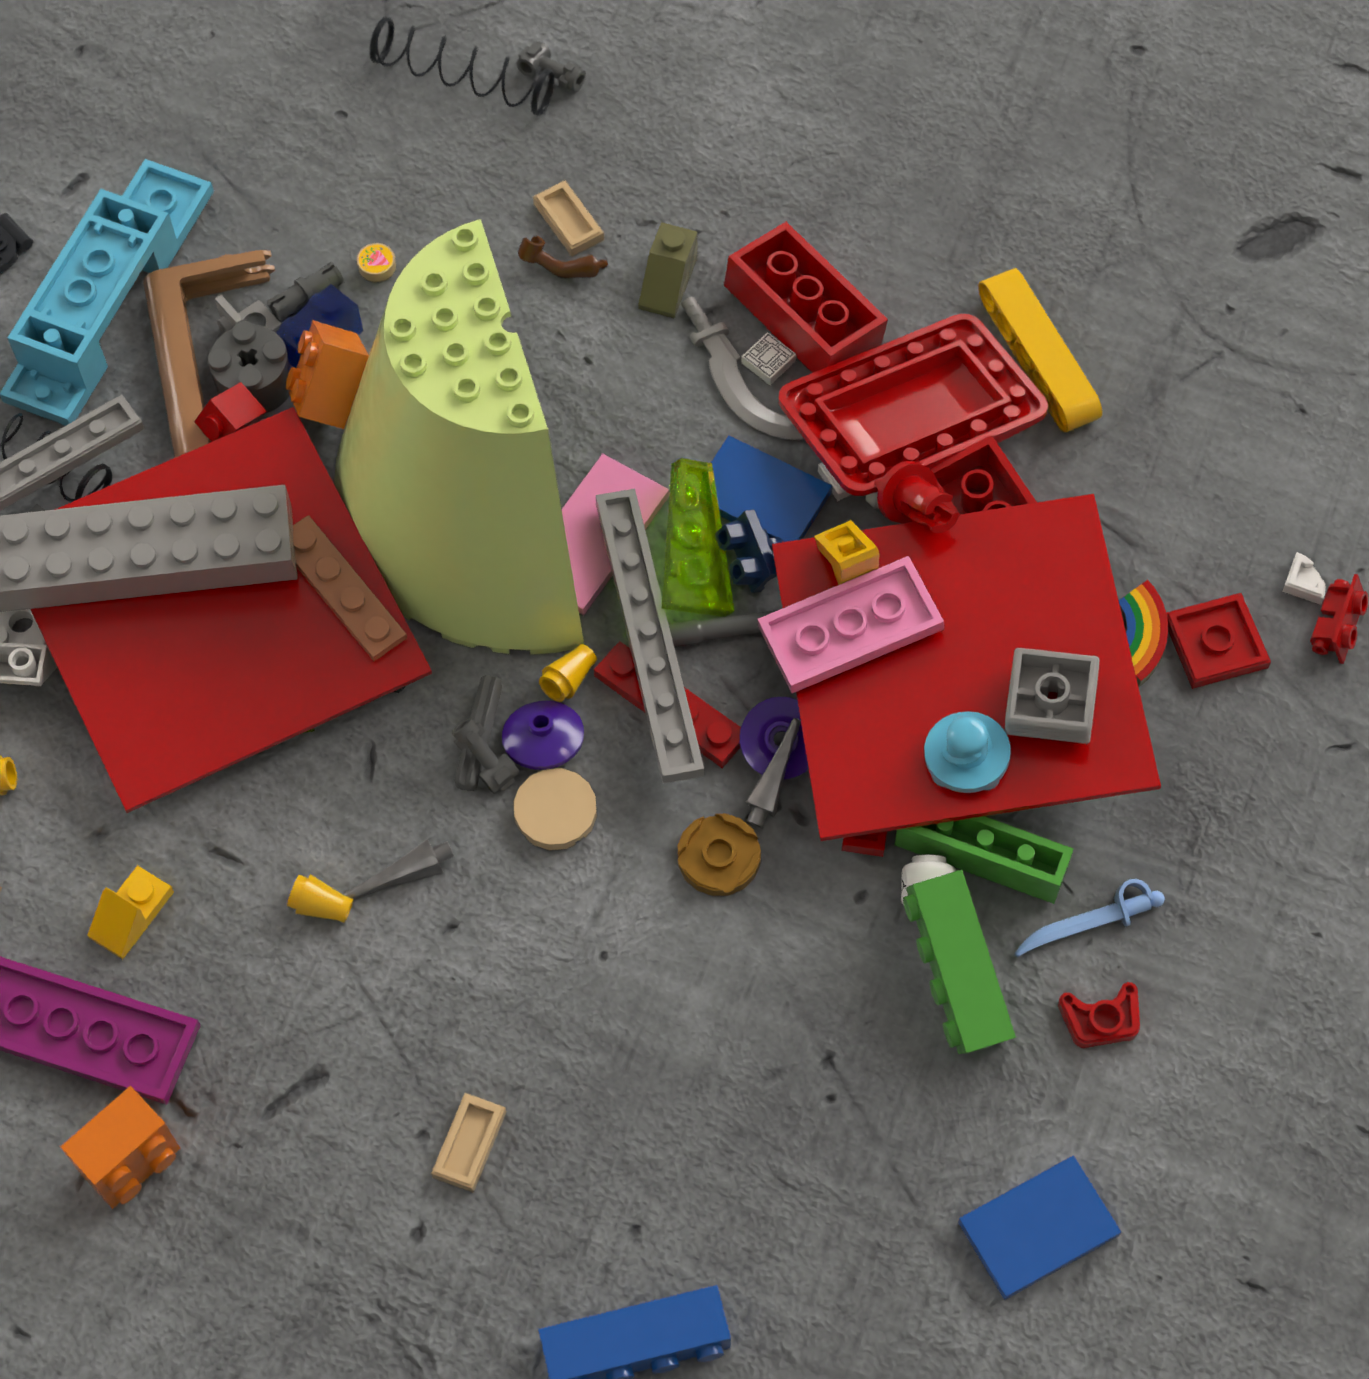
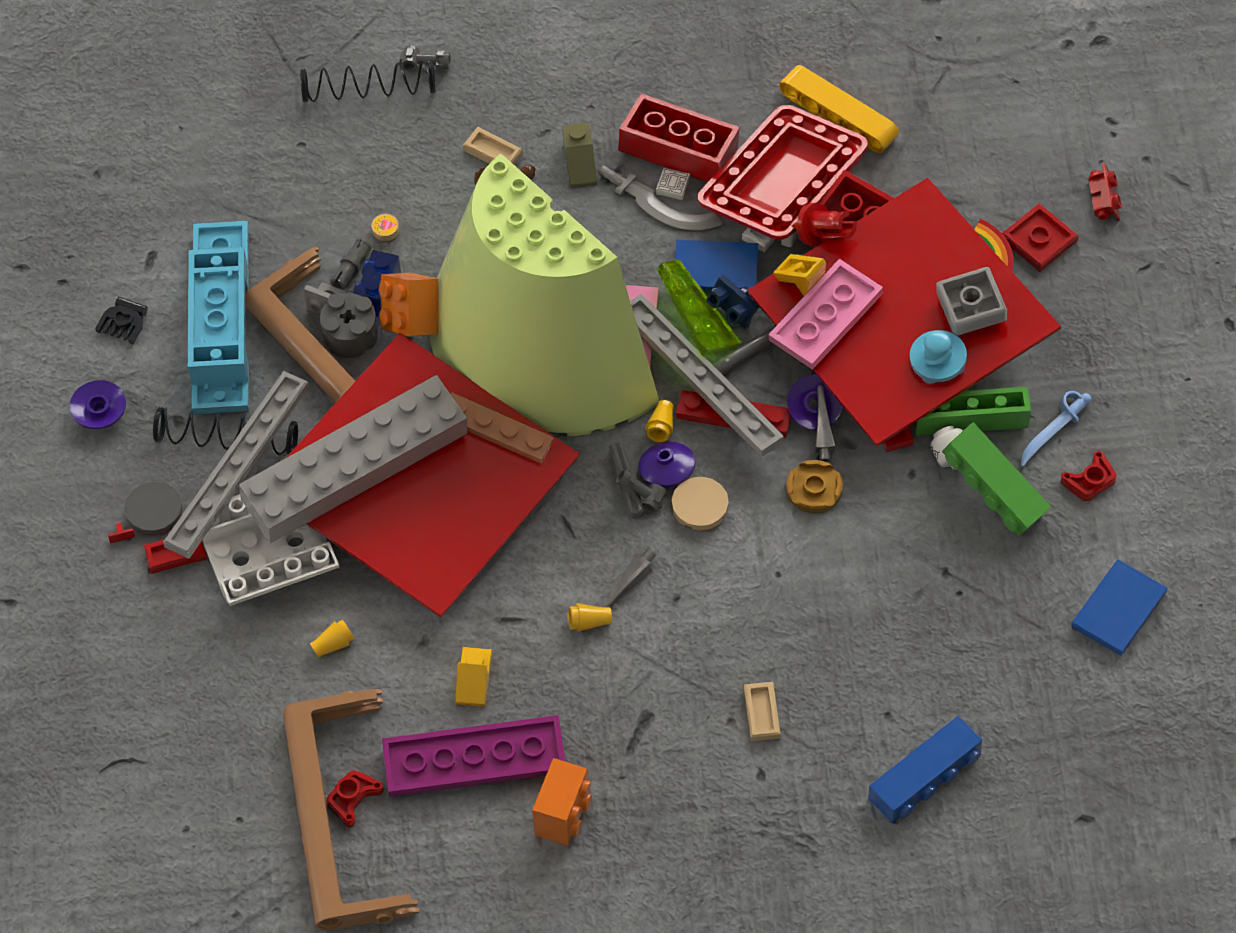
camera: 25 degrees left, 5 degrees down
(229, 412) = (358, 355): red brick -> none
(1304, 580) = (1072, 181): white tile -> none

